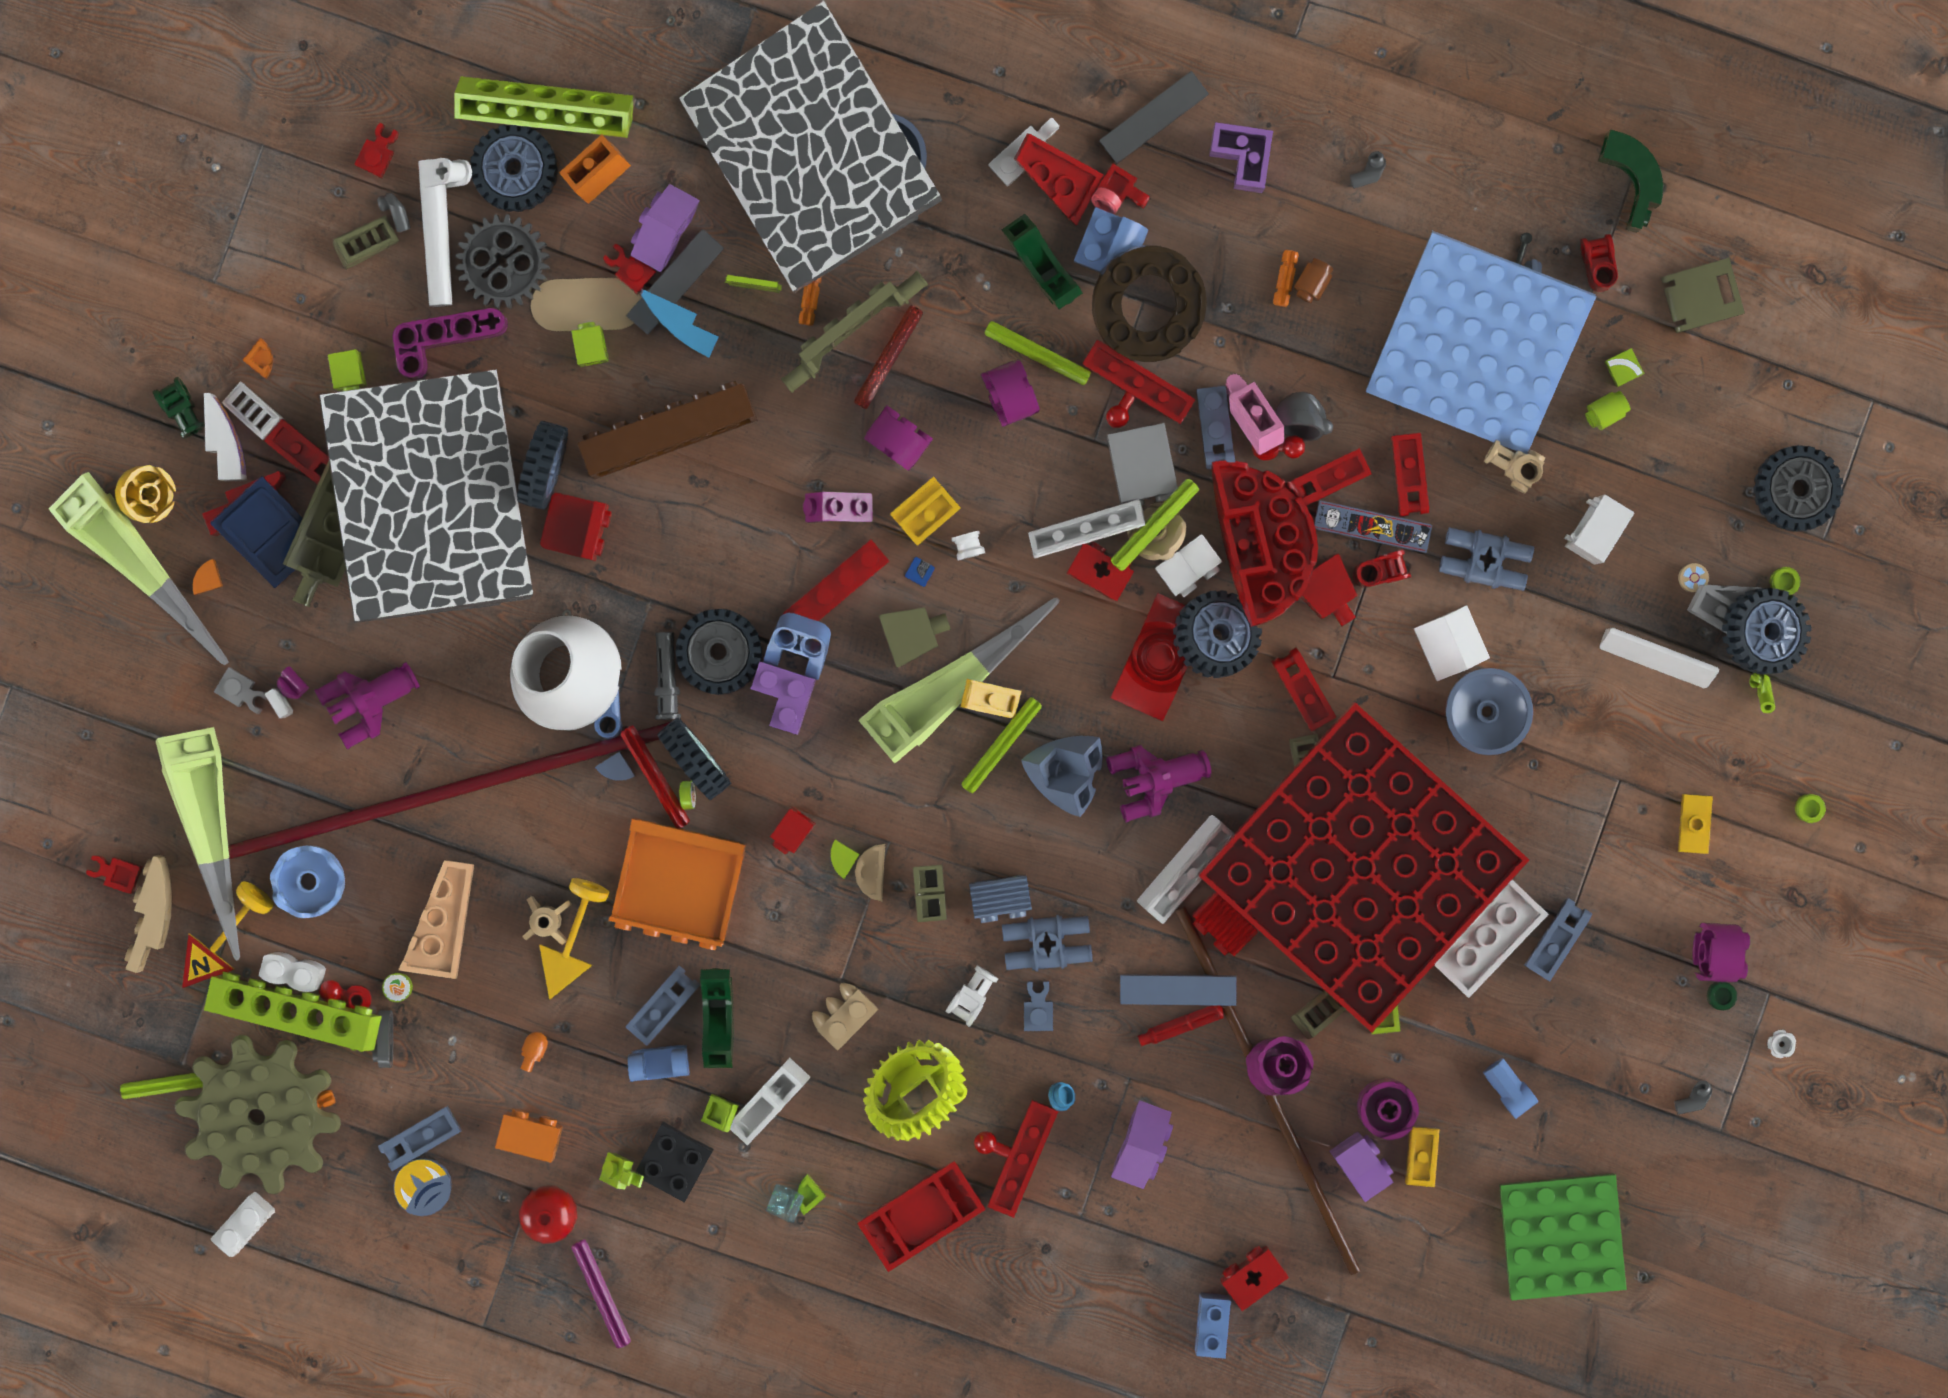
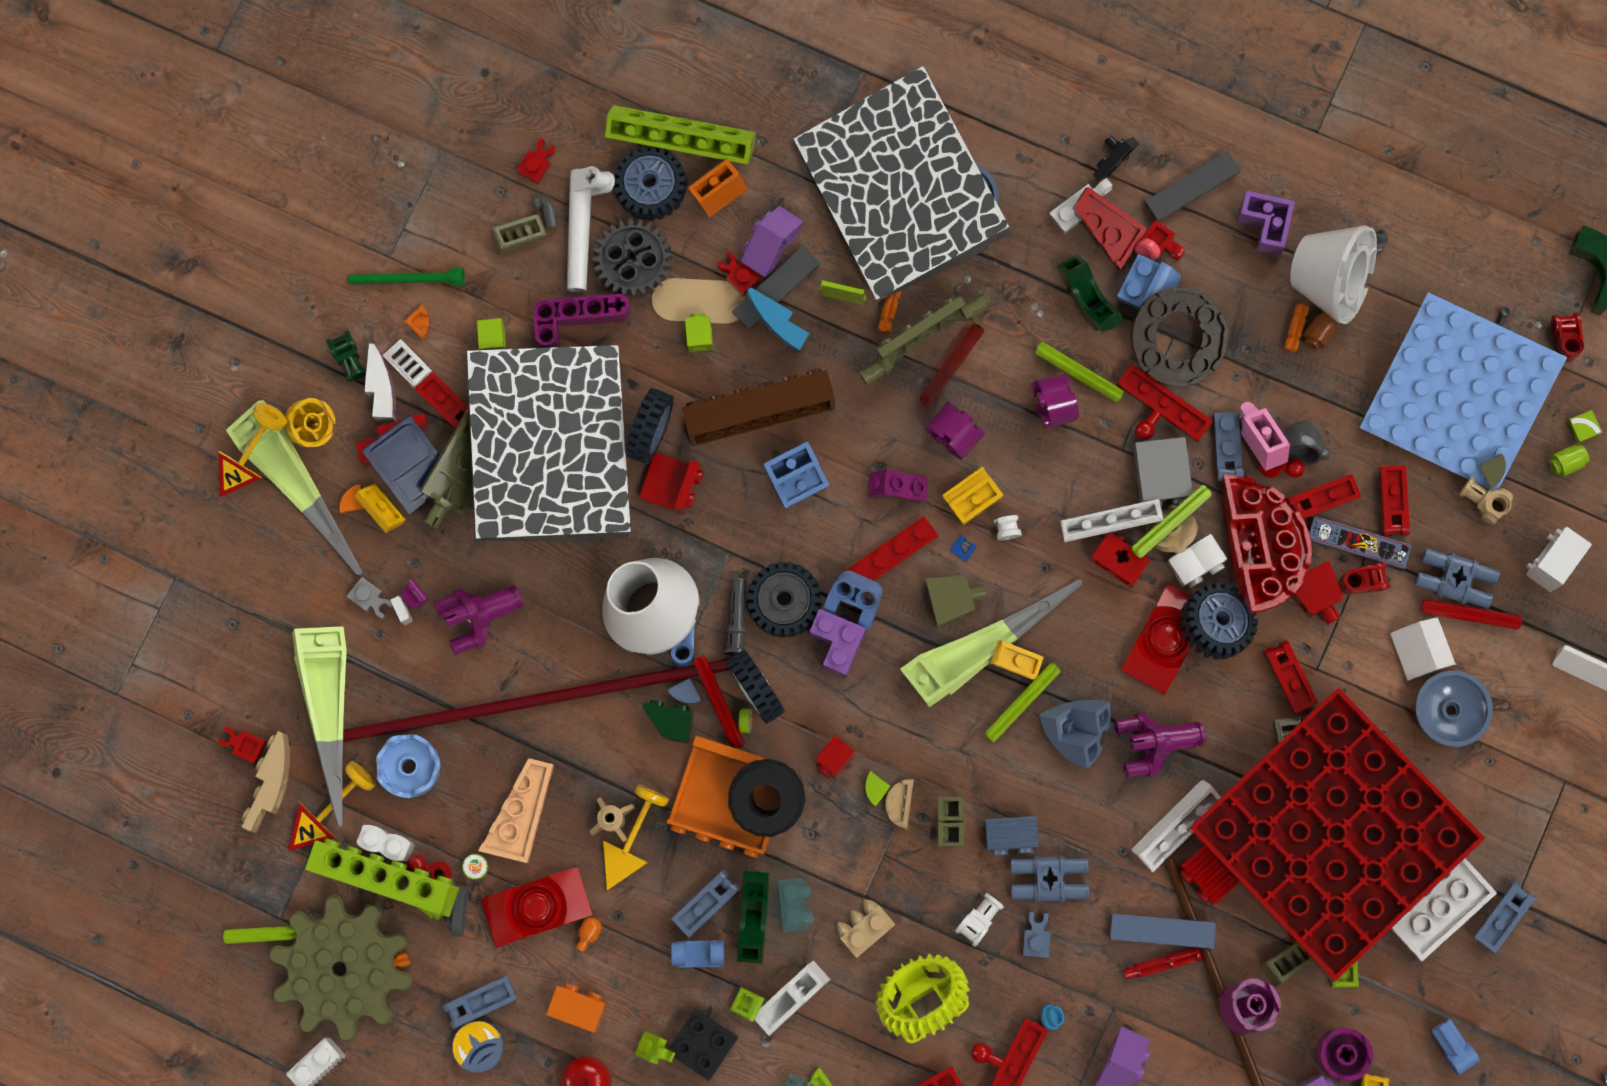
camera: 15 degrees right, 10 degrees down
(65, 561) = (233, 473): none -> yellow piece
(239, 585) = (380, 508): none -> yellow plate
(294, 301) = (454, 277): none -> green piece
(472, 1026) = (536, 907): none -> red slope
(602, 806) = (671, 723): none -> dark green slope
(713, 909) = (760, 821): none -> black tyre
(718, 505) = (795, 474): none -> medium blue brick
(762, 999) = (794, 905): none -> clear light blue brick
(1066, 83) = (1121, 153): none -> black plate
(1324, 209) = (1334, 268): none -> white cone
(1504, 598) = (1471, 614): none -> red axle
(1521, 431) = (1494, 469): none -> olive tile

